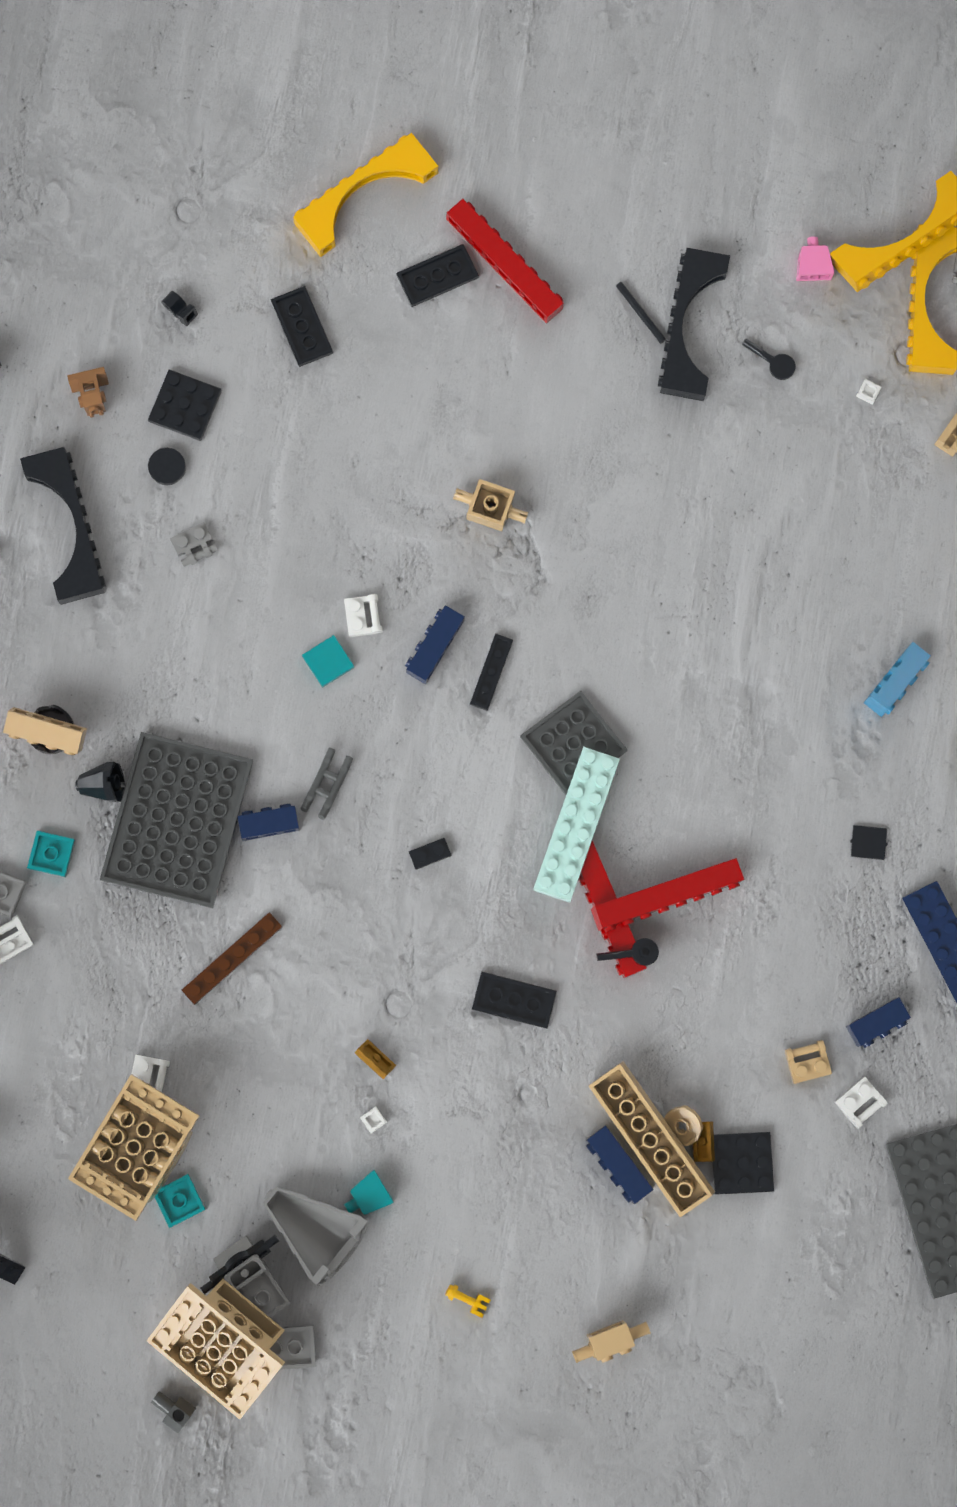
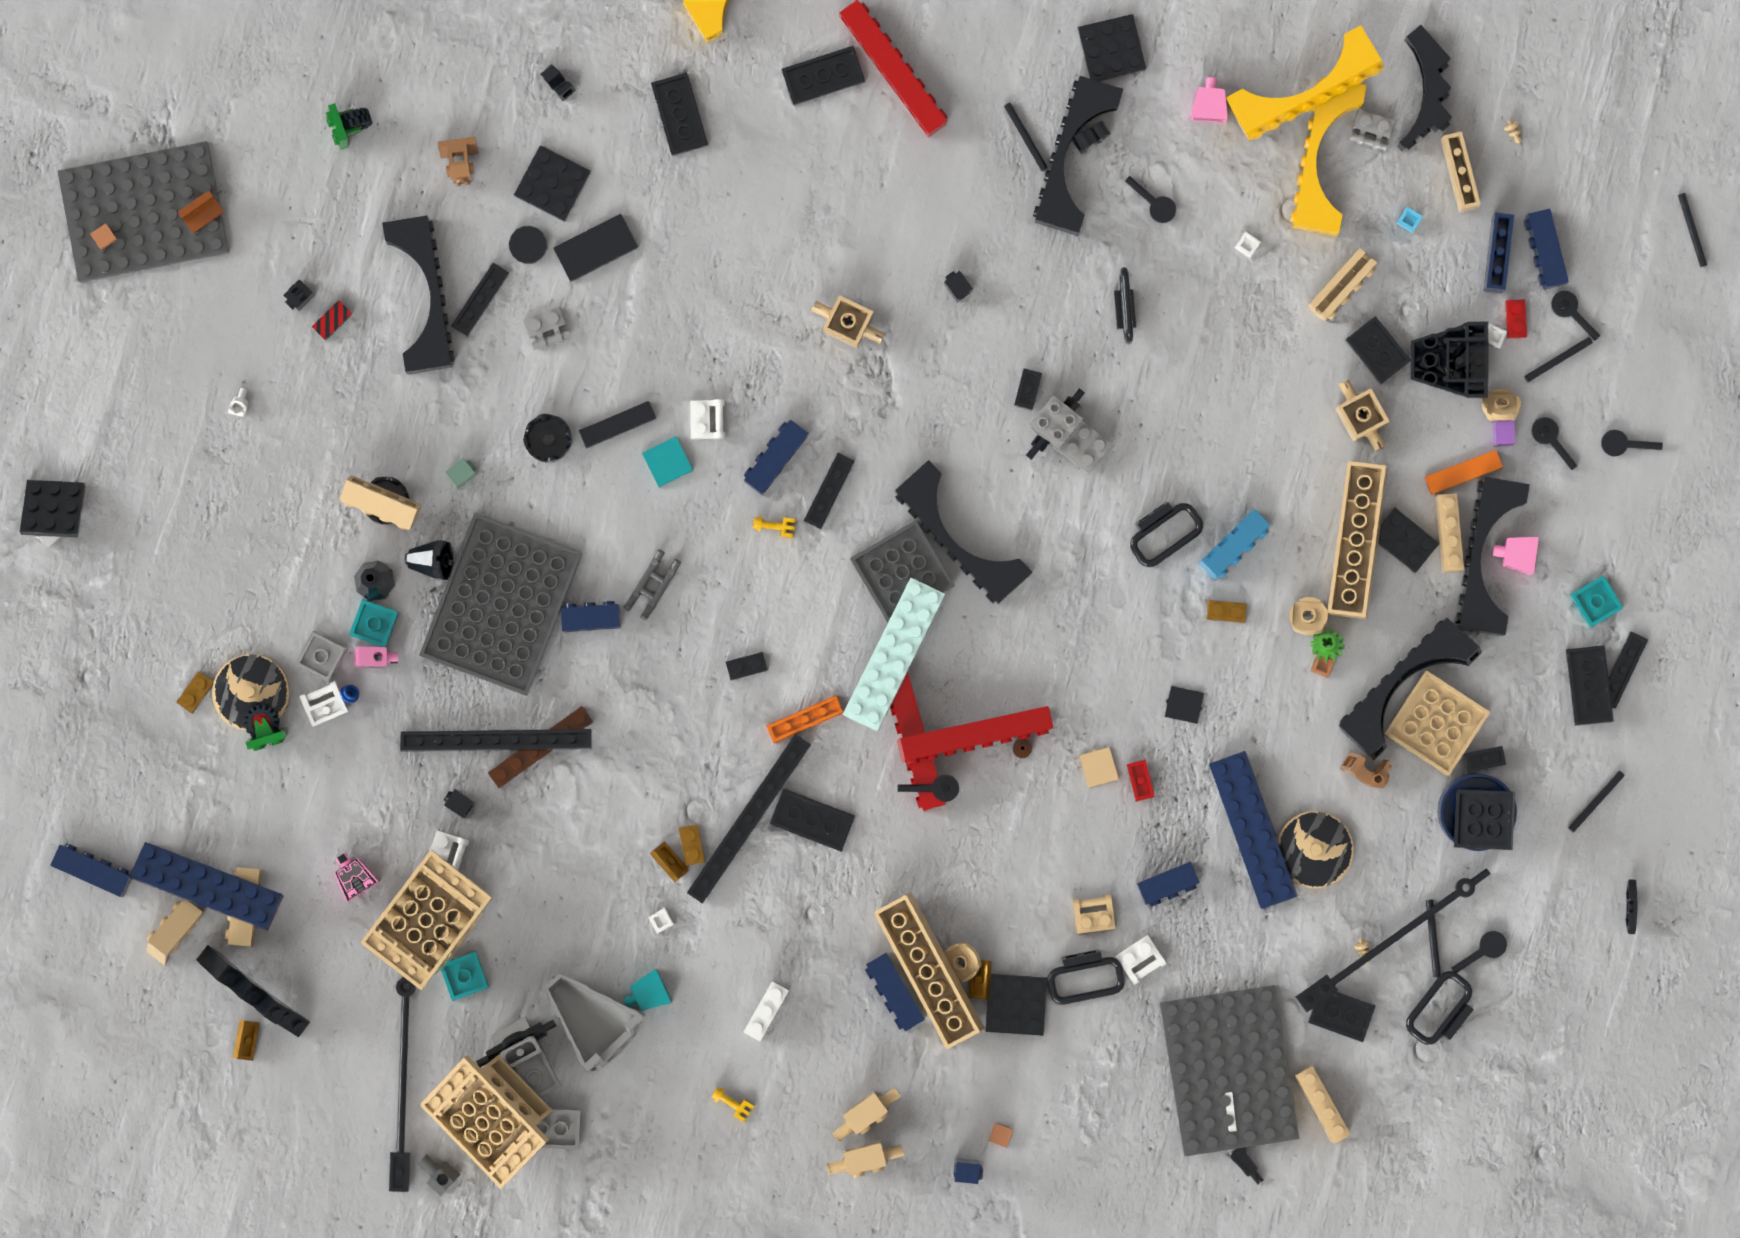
camera: 15 degrees right, 5 degrees up
(36, 924) = (352, 690): none -> blue plate
(45, 887) = (365, 657): none -> bright pink torso
(47, 811) = (381, 584): none -> black cone
(56, 1112) = (354, 877): none -> torso
(124, 694) = (461, 472): none -> sand green brick
(125, 524) = (480, 299): none -> black tile
(132, 1401) = (400, 1160): none -> black bar
(155, 1024) = (458, 803): none -> black brick
(186, 956) = (496, 740): none -> black plate
(206, 637) = (543, 425): none -> black plate
(234, 462) = (595, 247): none -> black tile
(274, 630) = (617, 424): none -> black tile
(395, 1039) = (691, 845): none -> pearl gold plate
(425, 711) = (758, 523): none -> yellow hinge
(450, 1006) = (748, 818): none -> black plate
(491, 1200) = (766, 1011): none -> white brick
(494, 899) = (805, 719): none -> orange tile
(593, 459) = (957, 285): none -> black brick
(605, 1294) = (866, 1112): none -> tan brick
(664, 737) = (995, 577): none -> black arch
(674, 551) = (1028, 389): none -> black plate
(705, 303) = (1092, 135): none -> black leg
(711, 907) = (1022, 753): none -> reddish brown tile
(712, 220) = (1111, 48): none -> black plate
(717, 588) = (1067, 433): none -> light grey piece
(718, 1341) = (967, 1171): none -> dark blue brick
(744, 1299) = (1000, 1135): none -> nougat tile
(758, 460) = (1125, 306): none -> black bar
(792, 914) = (1098, 767): none -> tan piece
(804, 1111) = (1080, 962): none -> black bar
(817, 663) = (1153, 521): none -> black bar
(836, 922) = (1140, 780): none -> red plate
(897, 746) = (1226, 611): none -> pearl gold plate

